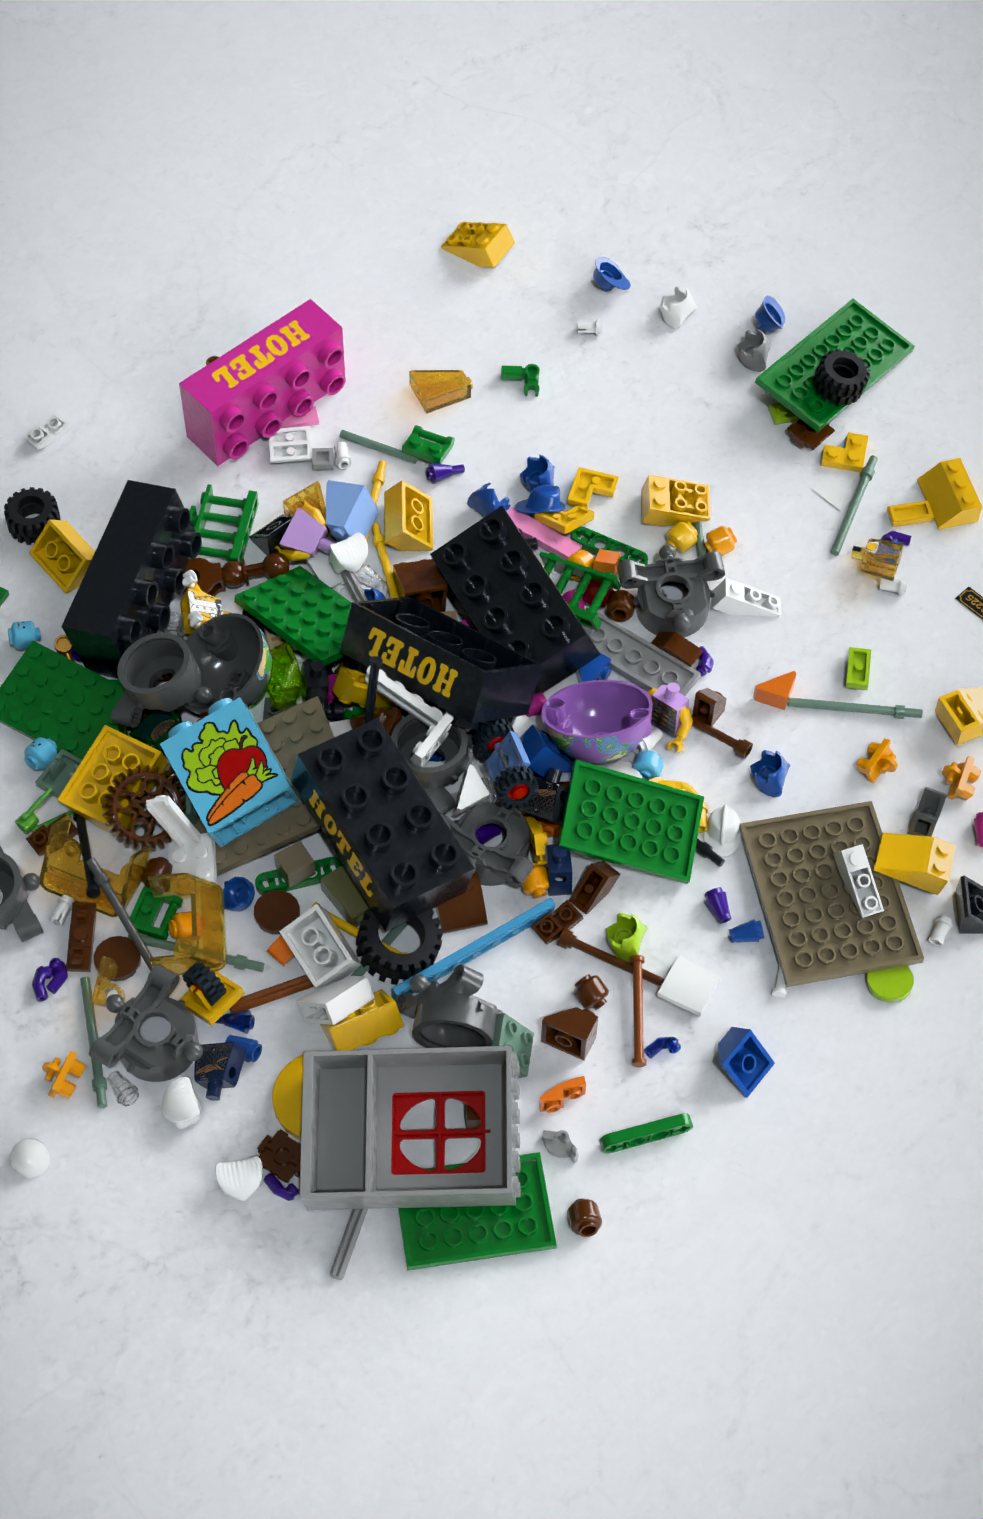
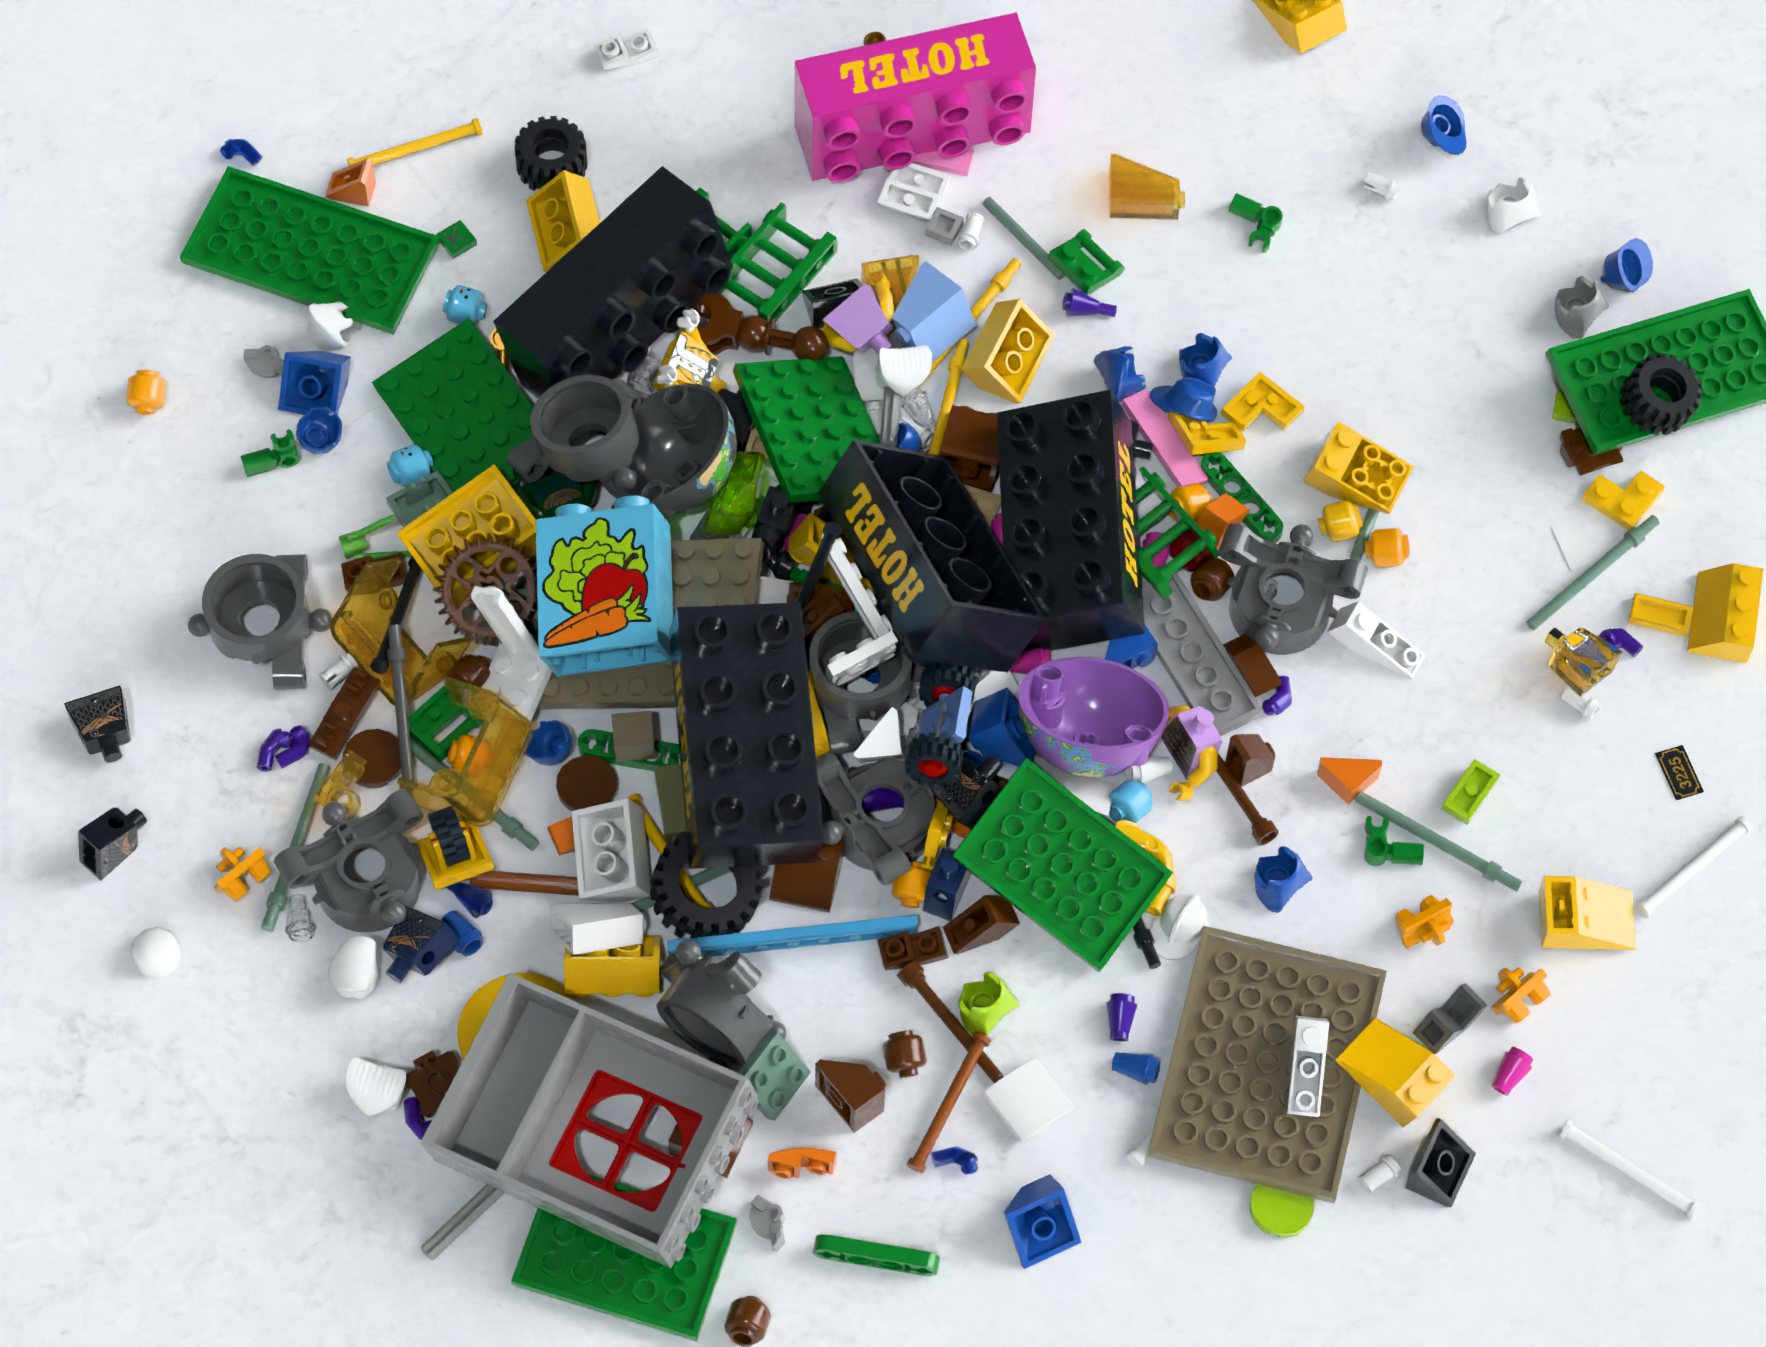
camera: 25 degrees right, 5 degrees up
(822, 729) = (1379, 851): none -> green bar

